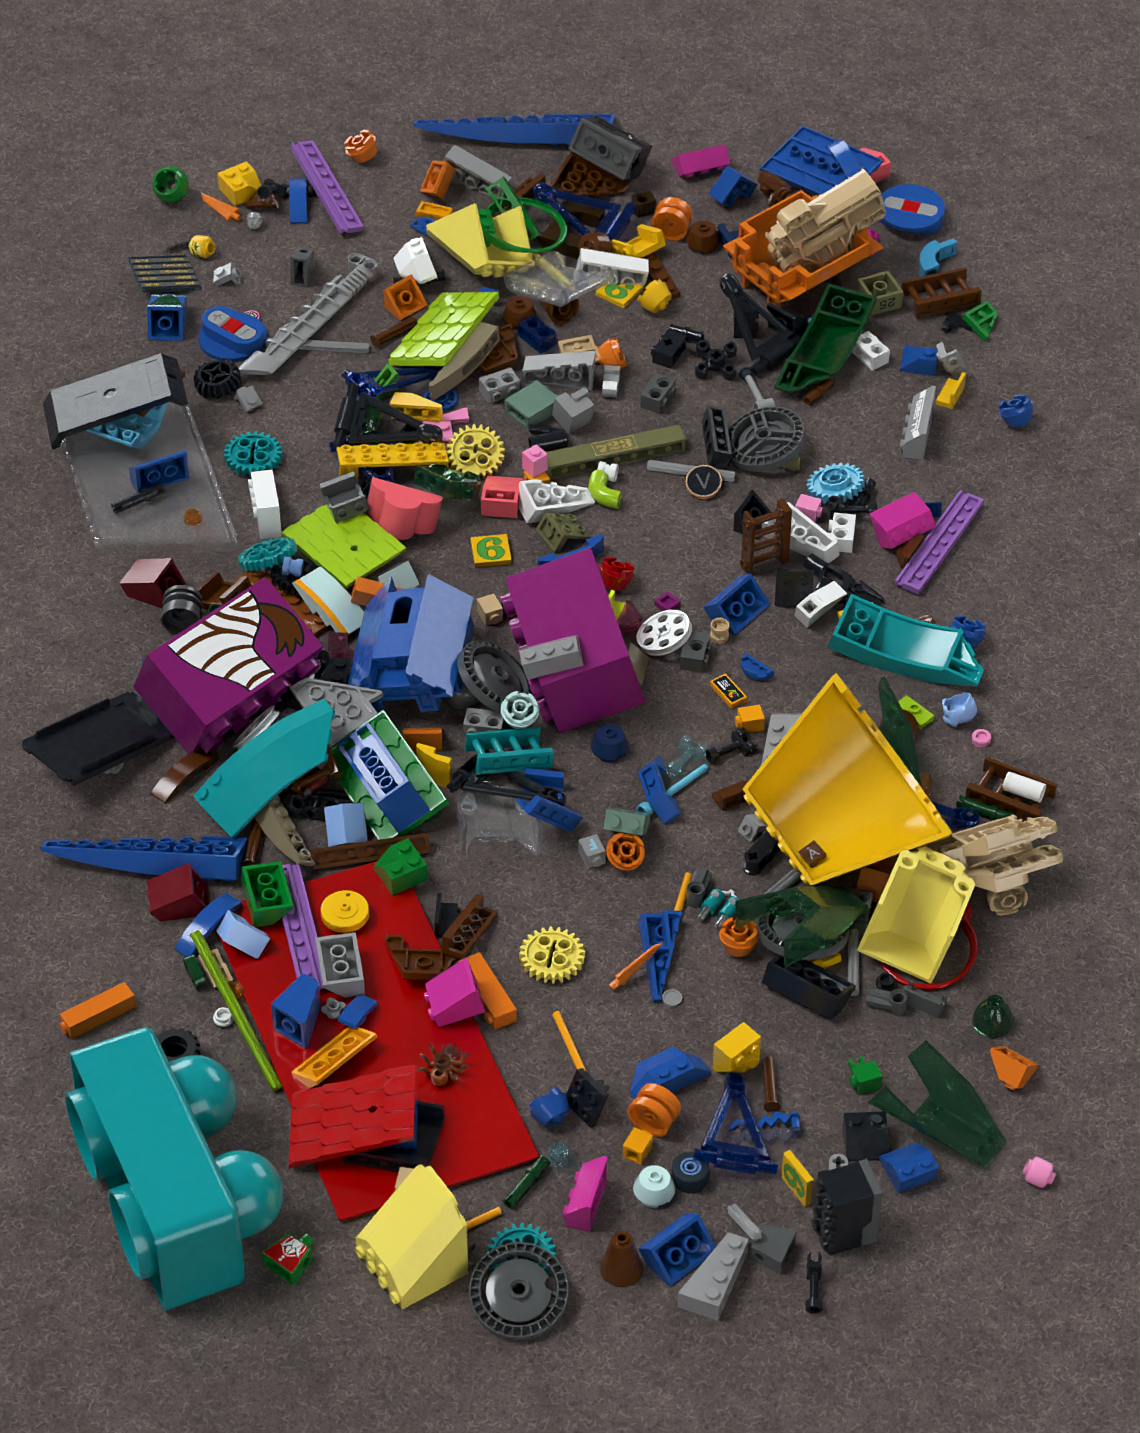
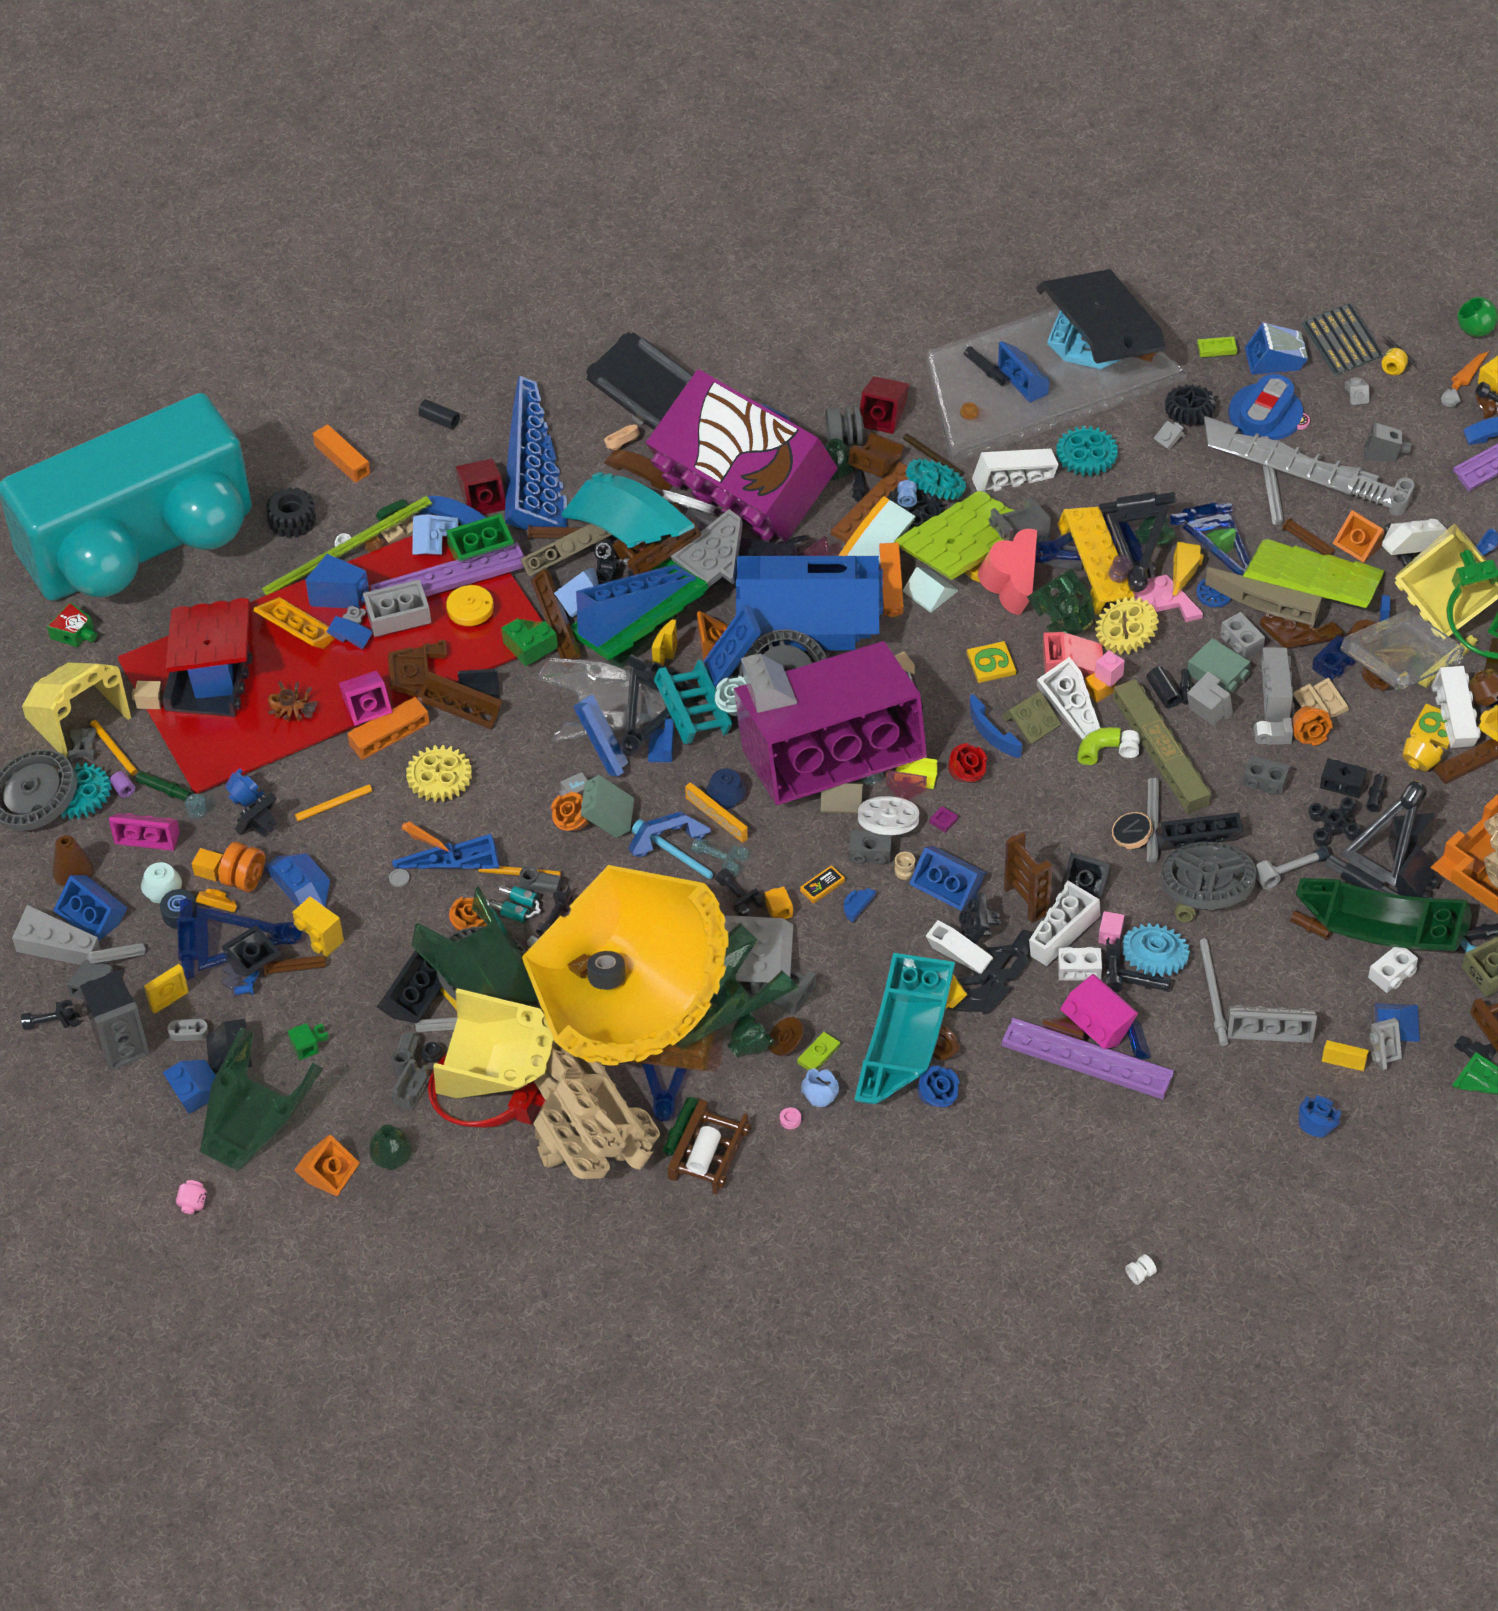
camera: 85 degrees right, 5 degrees up
(64, 925) = (439, 414): none -> black pin
(140, 785) = (622, 436): none -> light nougat plate
(146, 349) = (1217, 346): none -> lime plate
(220, 563) = (931, 454): none -> dark brown bar
(421, 438) = (1119, 569): none -> wheel
(468, 697) = (732, 645): none -> blue plate
(518, 1216) = (122, 784): none -> medium lavender gear
(637, 752) = (716, 812): none -> light orange tile
(684, 1141) = (216, 899): none -> light orange tile
(727, 869) = (560, 904): none -> black bar
(767, 1104) = (250, 951): none -> black slope
(829, 829) = (606, 970): none -> black wheel
(913, 459) = (1219, 1024): none -> light grey bar

